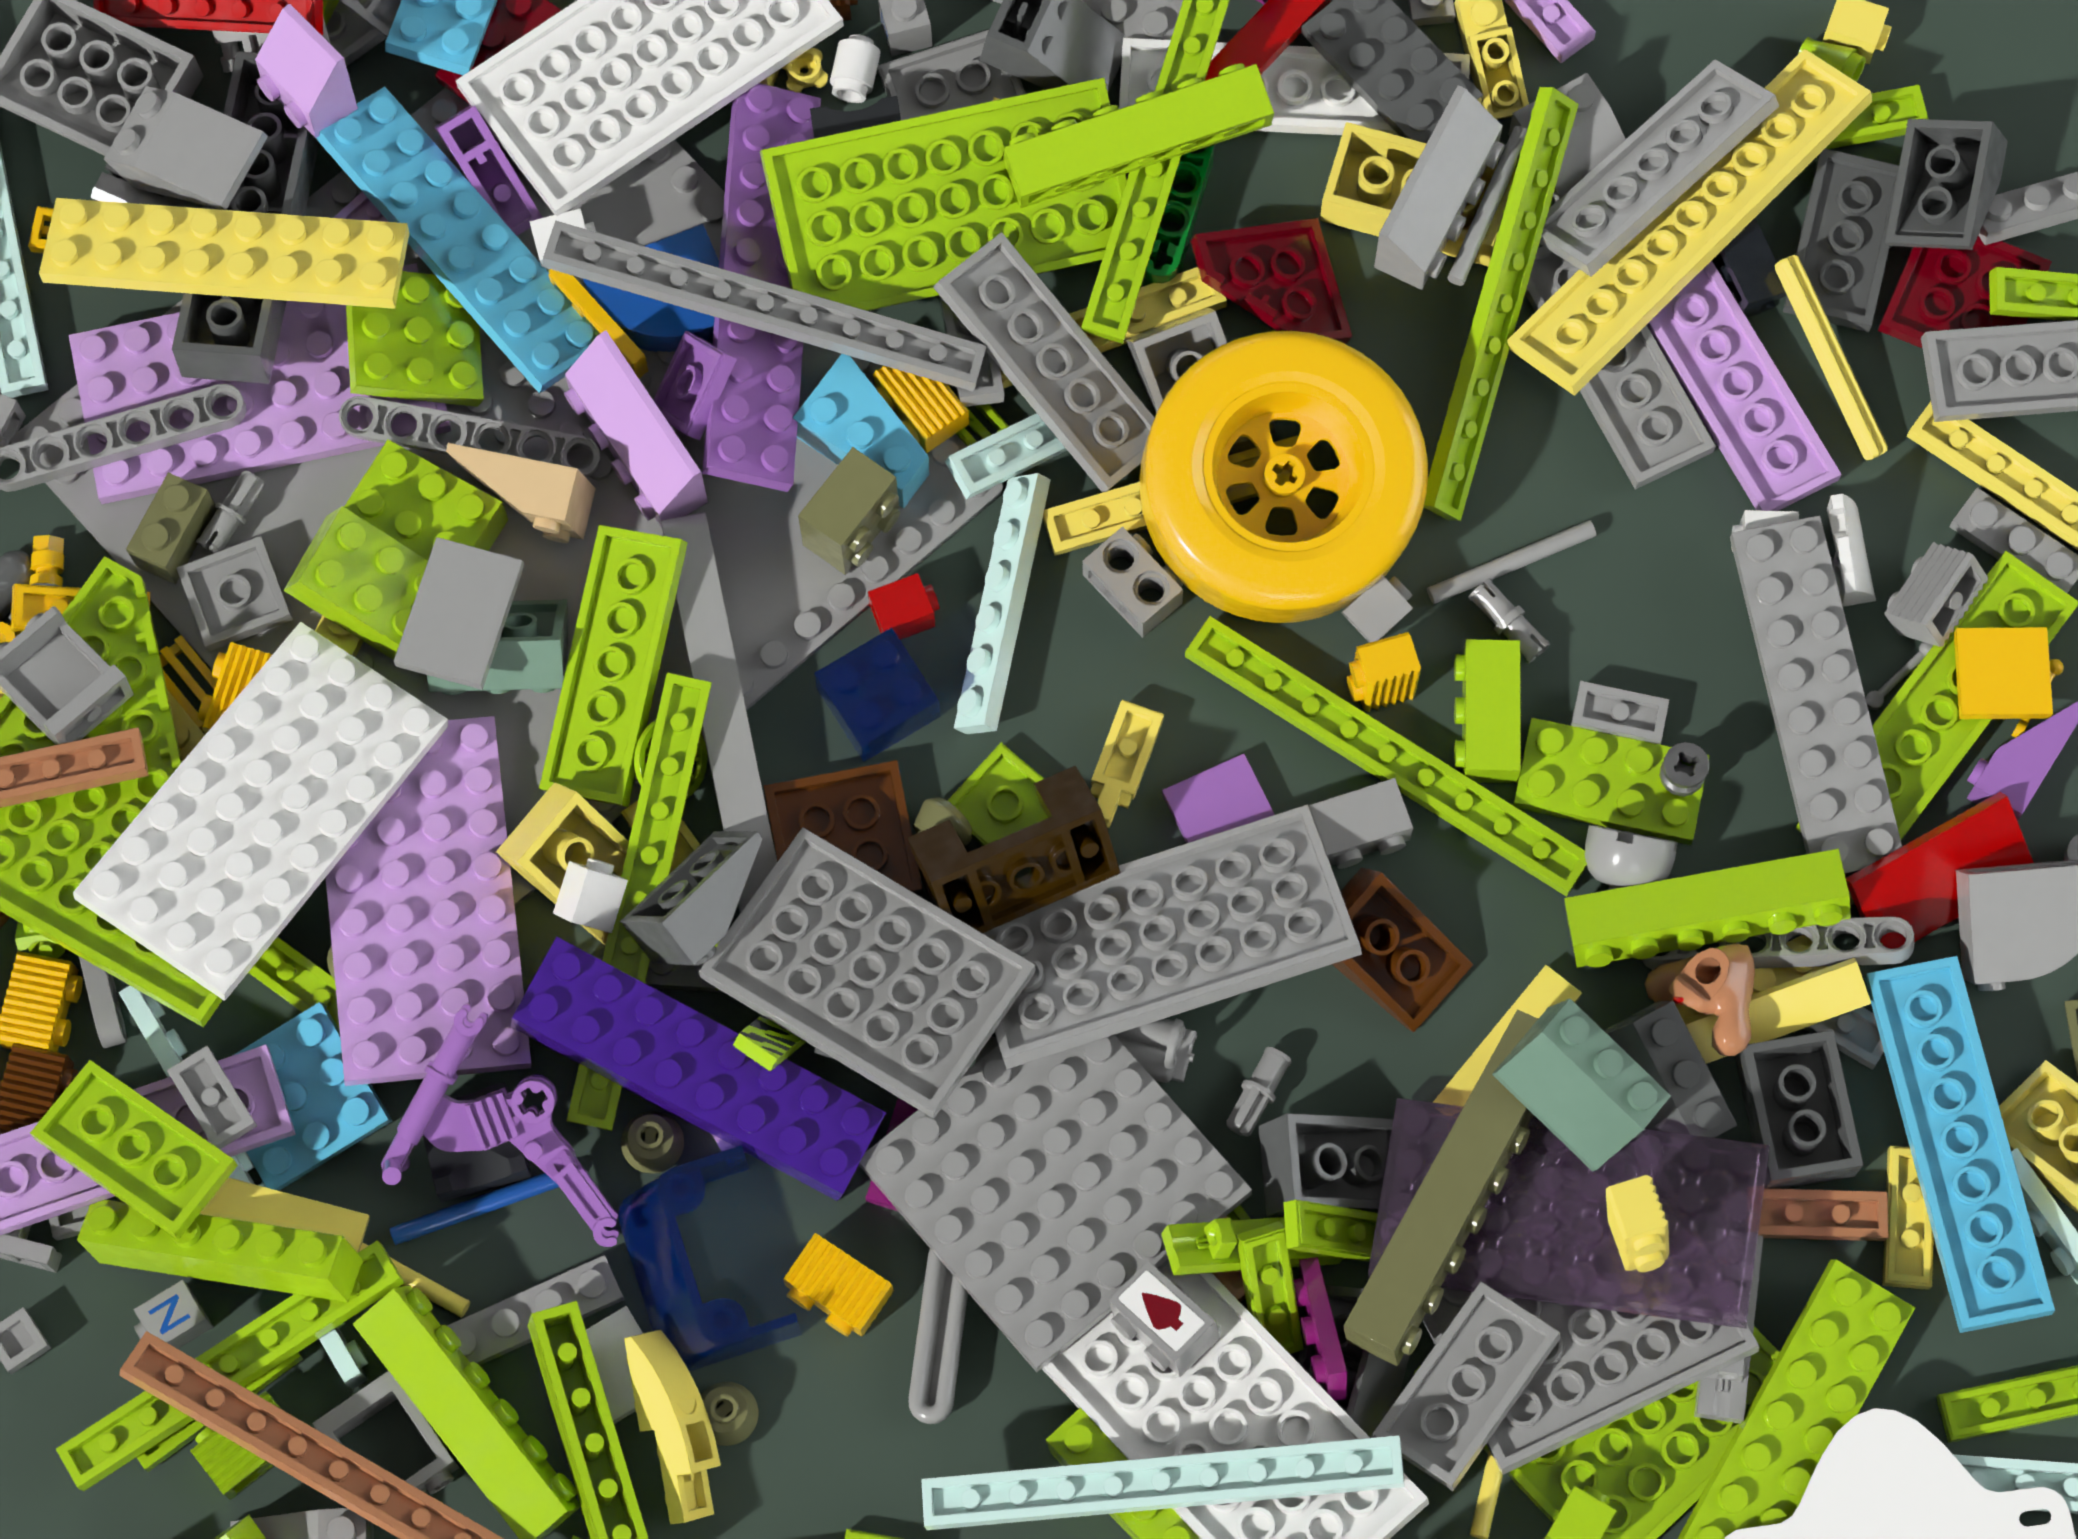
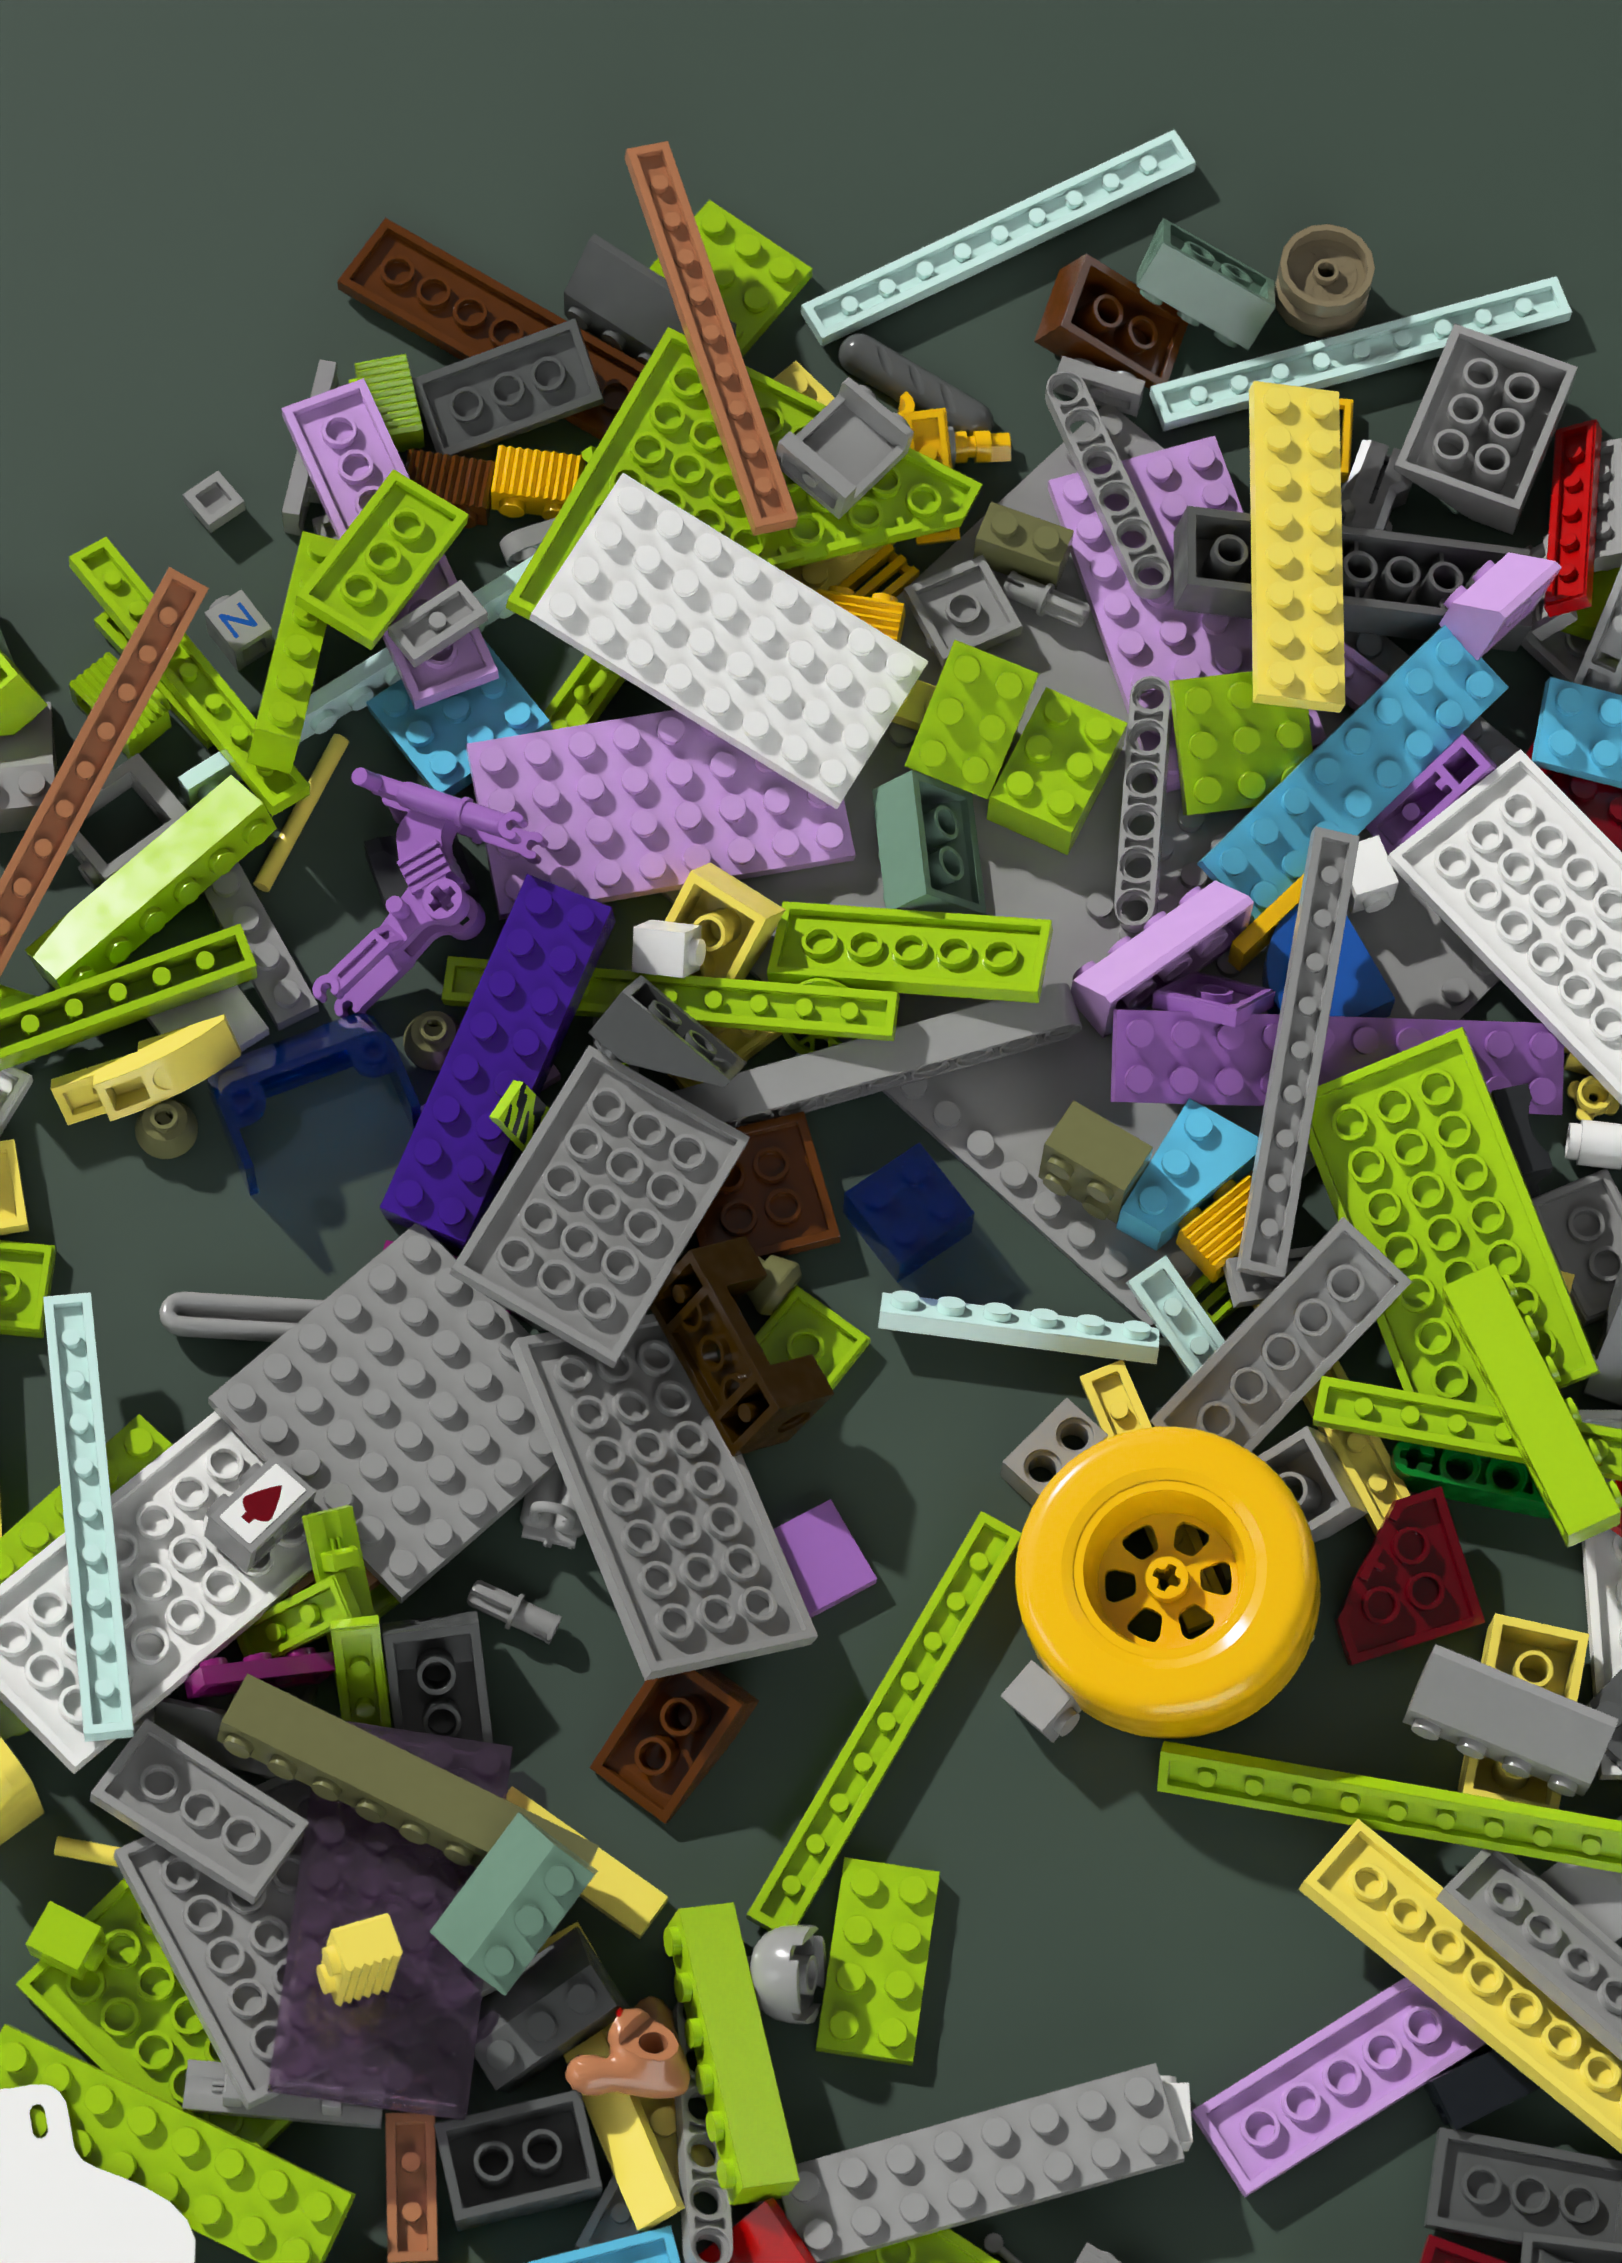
camera: 80 degrees right, 5 degrees down
(184, 149) = (1408, 502): light grey slope -> none
(273, 1207) = (332, 708): light yellow tile -> none
(459, 613) = (943, 796): light grey tile -> none
(472, 1208) = (354, 869): blue bar -> none
(544, 493) = (1084, 859): tan slope -> none
(837, 1286) = (293, 1218): yellow brick -> none
(904, 606) = (1004, 1231): red brick -> none
(1124, 757) = (860, 1458): light yellow hinge -> none
(1362, 823) = (806, 1697): light grey brick -> none
(1384, 672) = (970, 1708): yellow brick -> none
(1487, 207) = (1499, 1783): light grey bar -> none
(1489, 711) = (942, 1825): lime brick -> none
(1509, 619) = (1047, 1844): light grey pin -> none
(1511, 561) = (1116, 1847): light grey bar -> none
(1620, 712) = (951, 1964): light grey plate -> none
(1633, 395) = (1316, 1967): light grey plate -> none
(1679, 777) = (890, 2034): flat silver wheel -> none
(1831, 357) = (1382, 2178): light yellow axle -> none
(1850, 558) = (1156, 2205): white slope -> none

